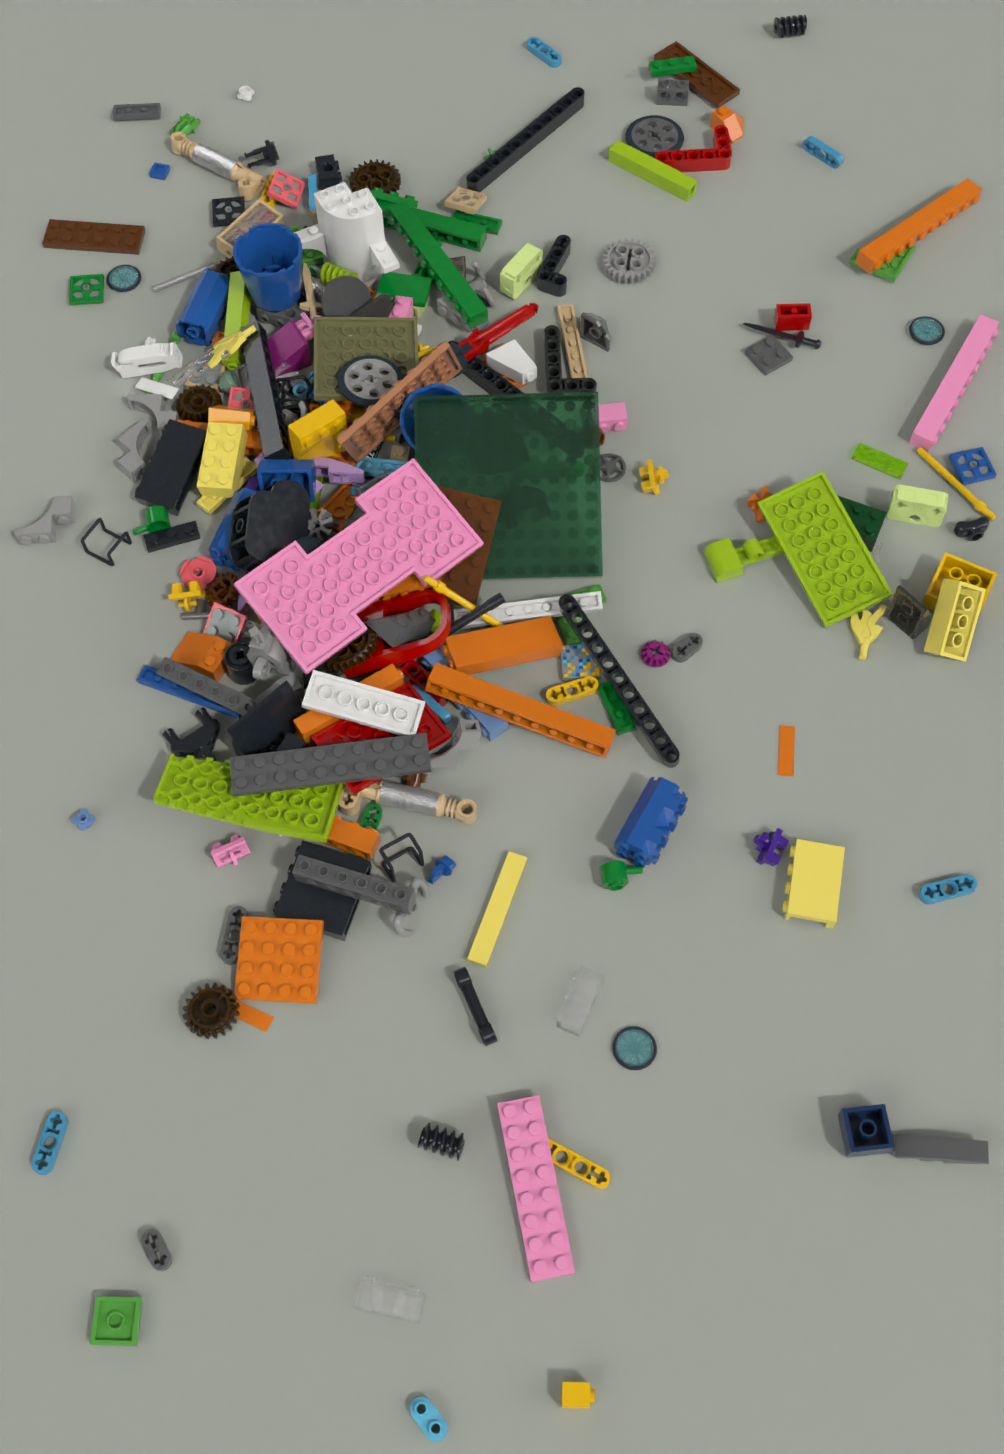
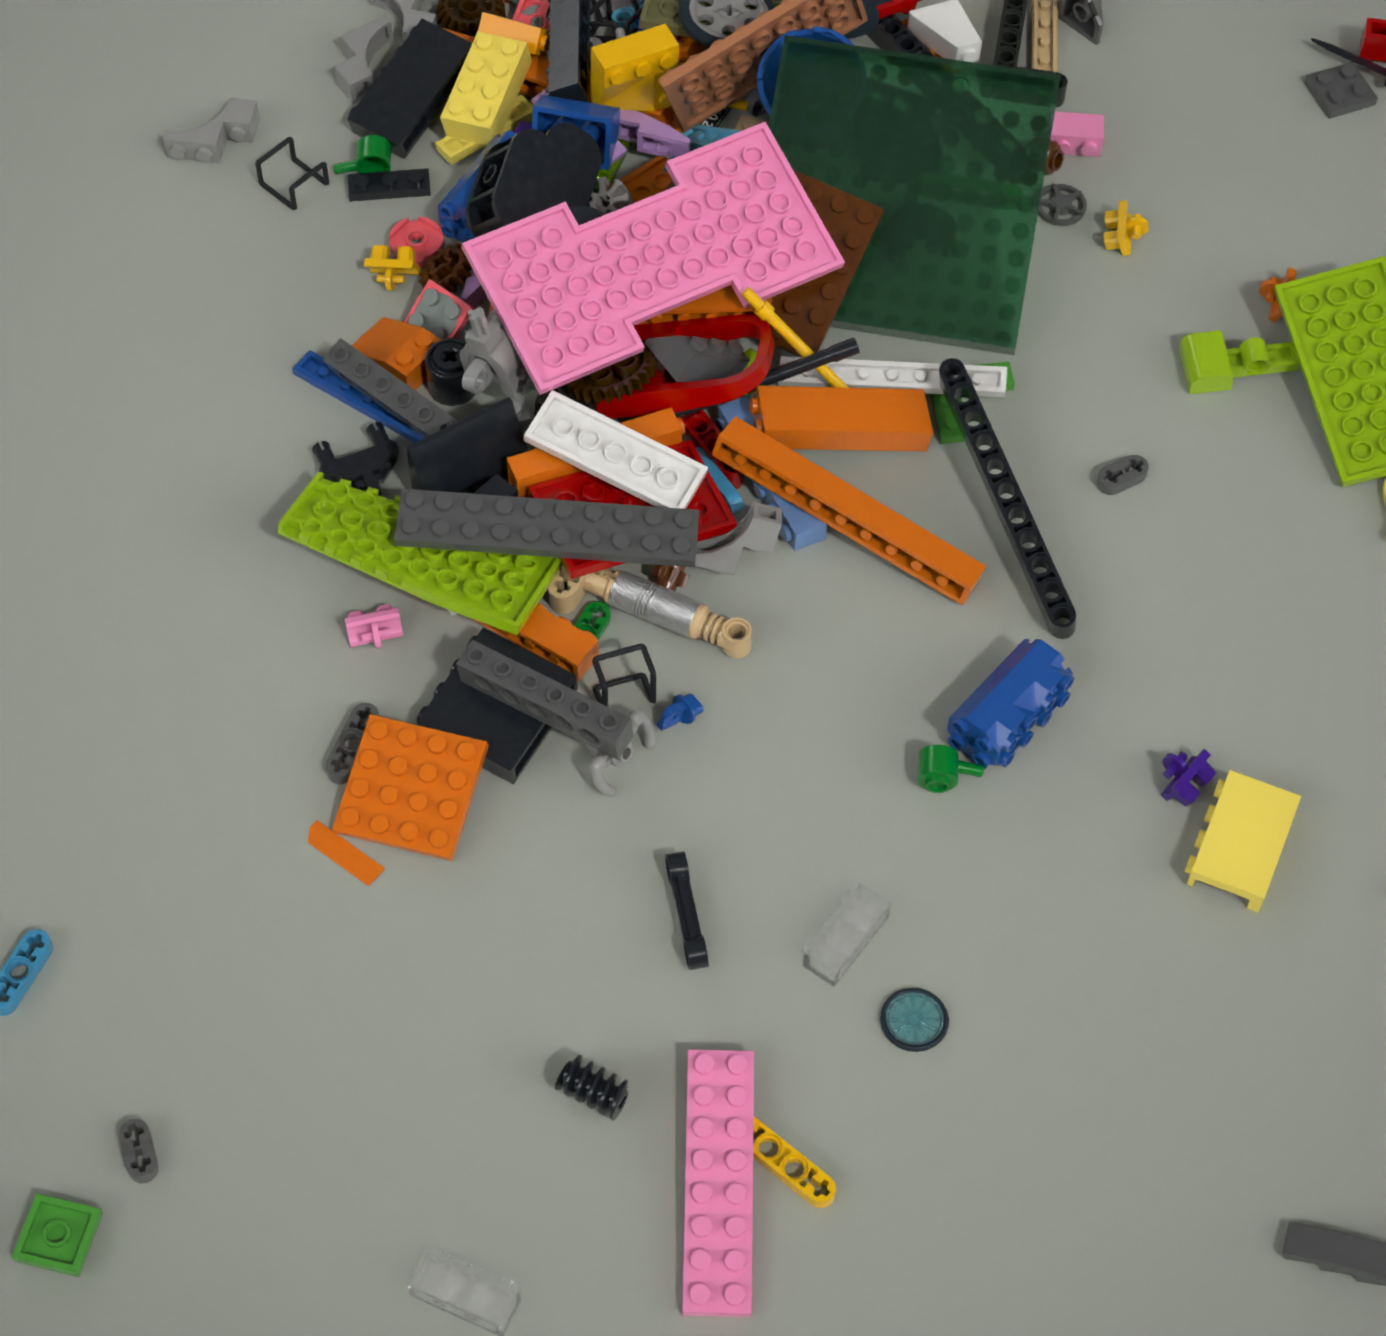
camera: 10 degrees right, 5 degrees down
(87, 823) = (174, 549): medium blue plate -> none
(199, 614) = (405, 297): flat silver piece -> none
(218, 1021) = (298, 856): dark brown gear -> none
(497, 909) = (751, 784): light yellow tile -> none
(578, 663) = (952, 467): tile -> none
(587, 691) = (955, 508): yellow beam -> none
(616, 710) = (995, 545): green tile -> none
(658, 660) = (1076, 483): magenta gear -> none
(786, 750) = (1243, 648): orange sticker -> none
(865, 1130) = (1243, 1204): dark blue brick -> none

